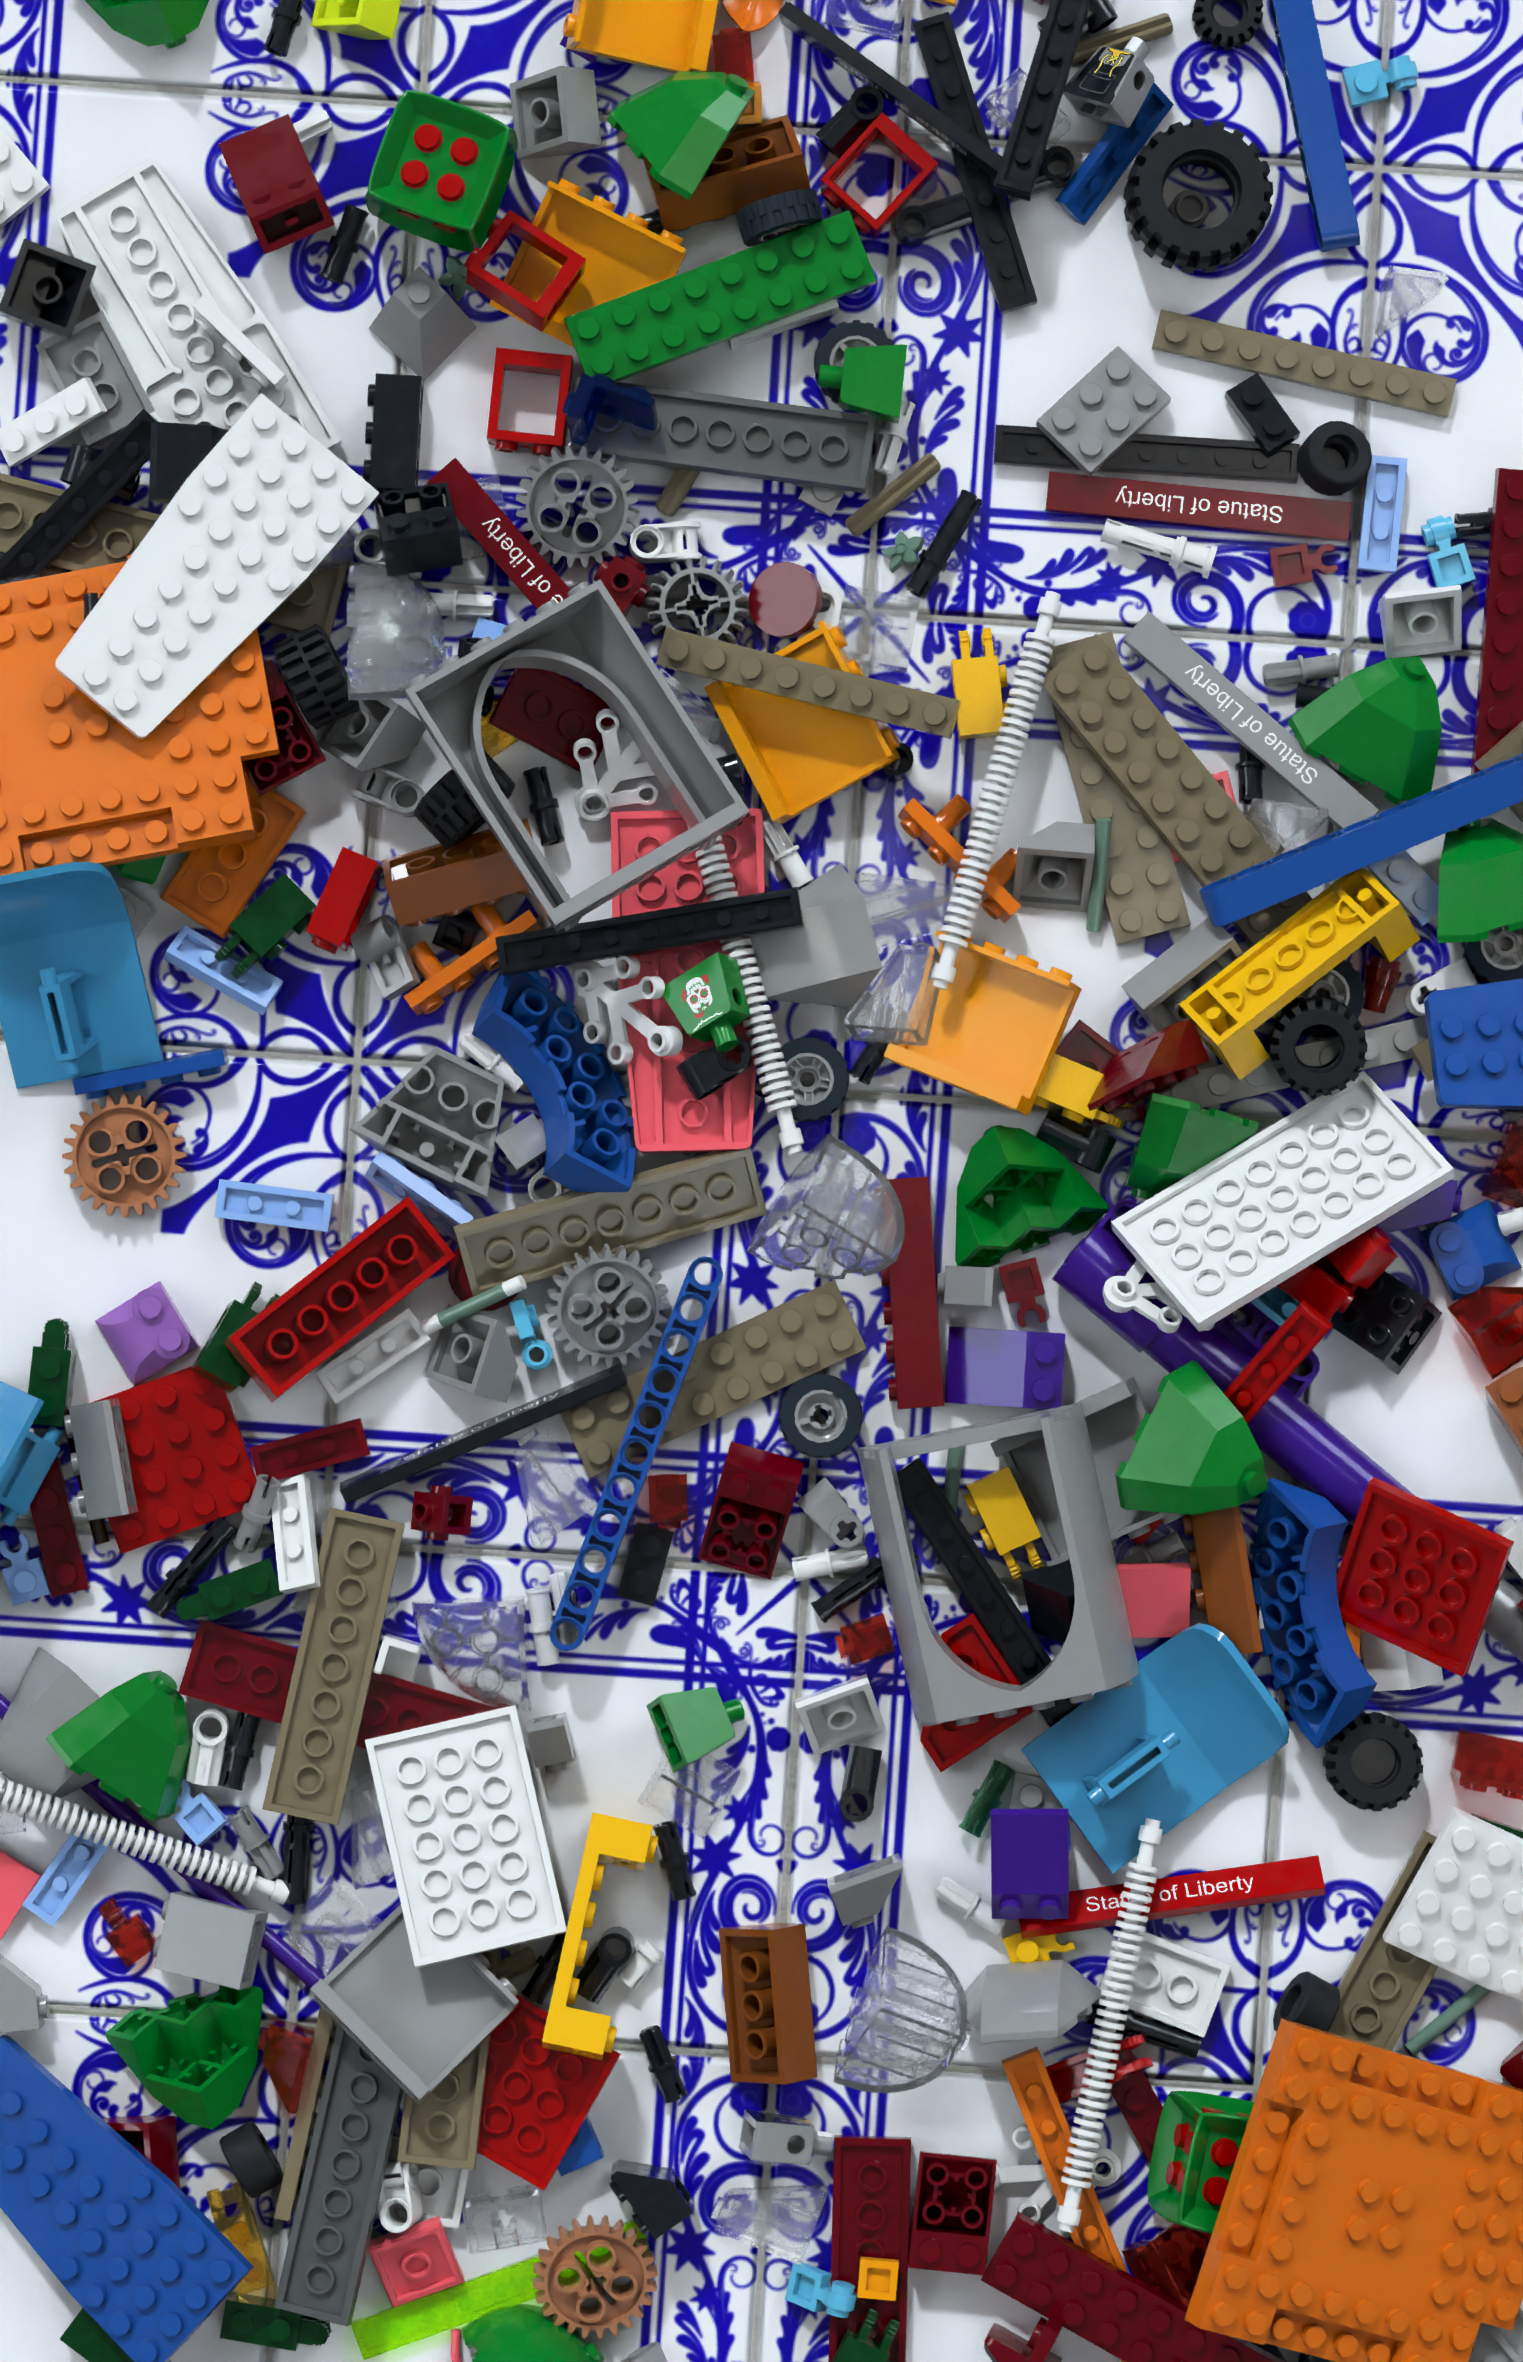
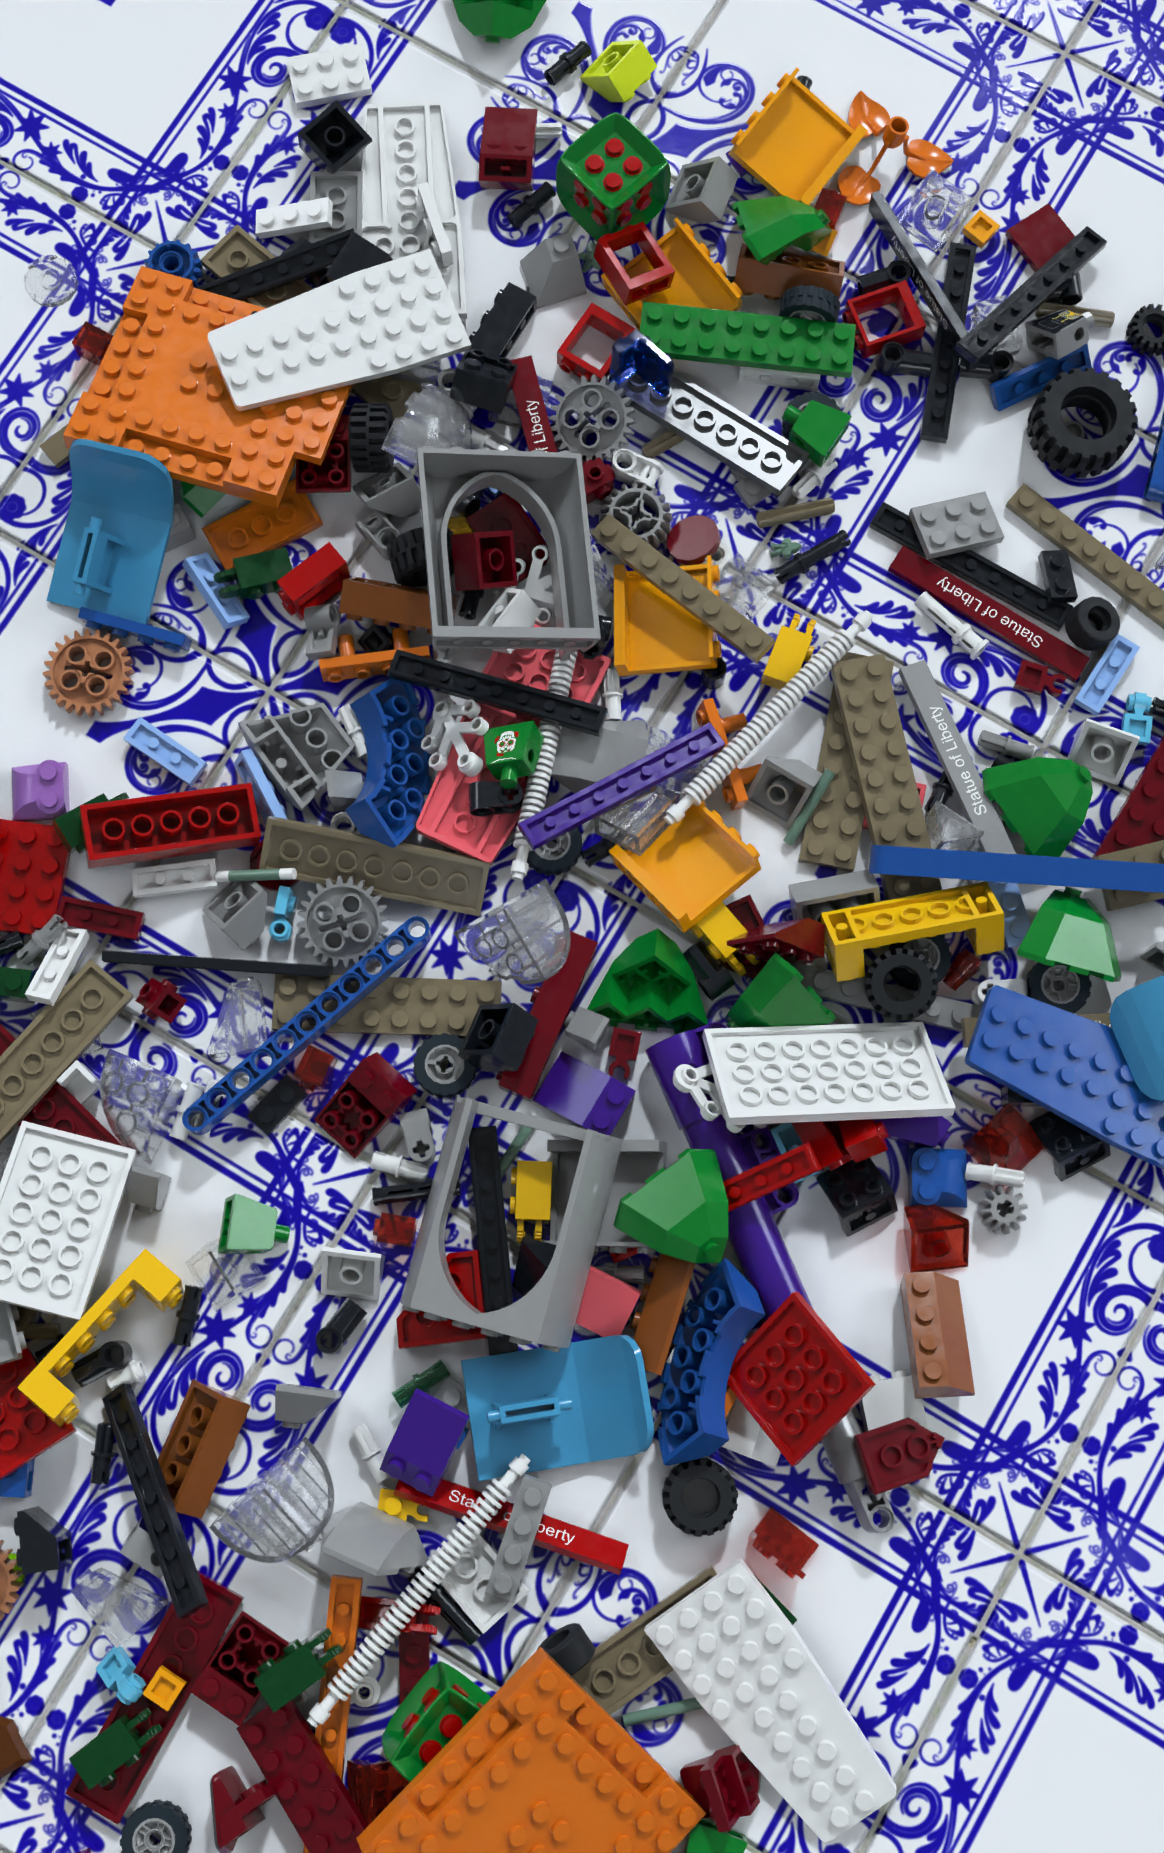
camera: 25 degrees right, 10 degrees down
(546, 771) = (484, 560): none -> dark red brick
(613, 837) = (511, 610): none -> white brick
(756, 2083) = (155, 1502): none -> black plate
(863, 973) = (621, 786): none -> dark purple plate
(871, 1355) = (498, 1037): none -> black brick
(1016, 2183) = (295, 1670): none -> dark green hinge
(1190, 1913) = (518, 1538): none -> light grey plate

